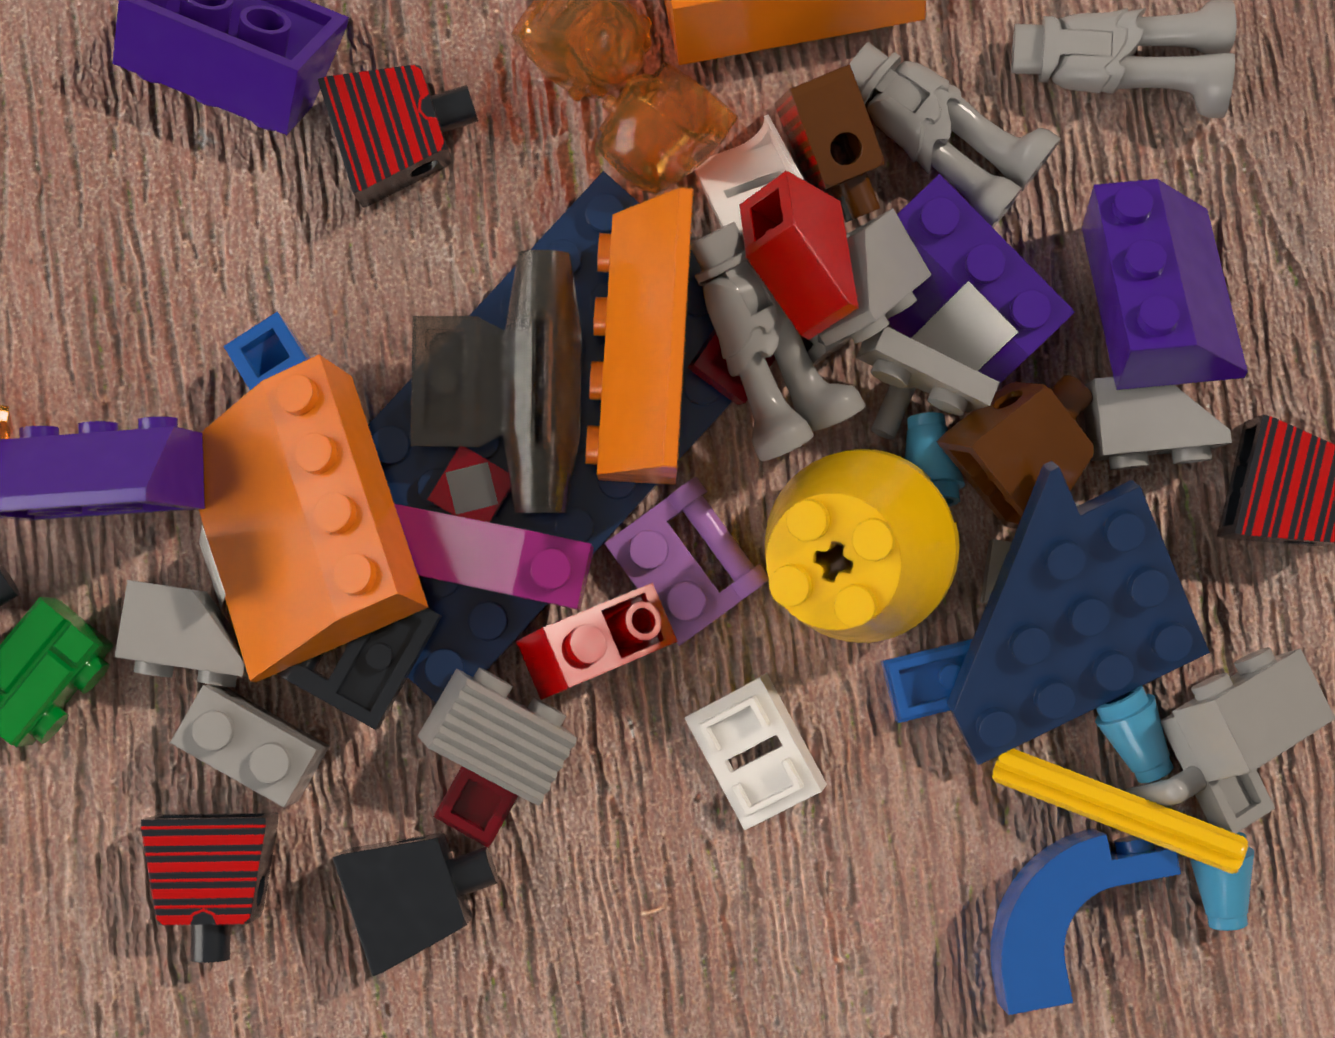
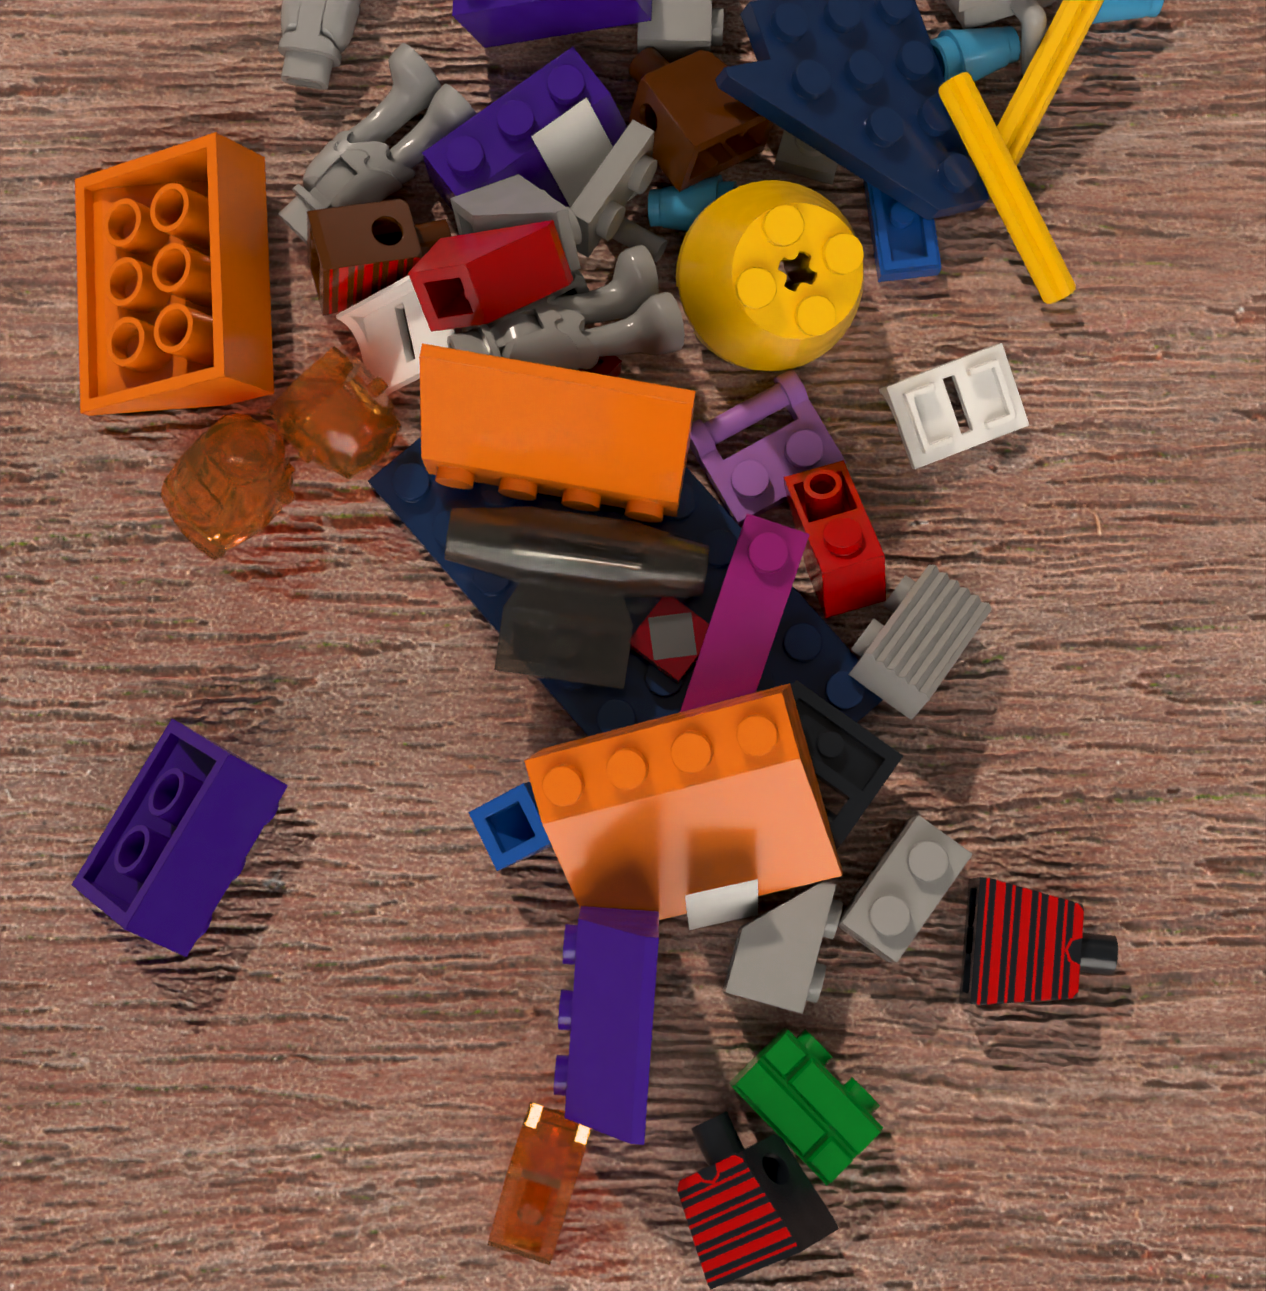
camera: 80 degrees left, 5 degrees down
(392, 127) = (293, 681): torso -> none
(409, 894) = (1065, 747): black torso -> none
(475, 806) = (981, 678): dark red tile -> none
(987, 780) = (1006, 188): none -> yellow axle
(1042, 901) = (1124, 155): blue arch -> none

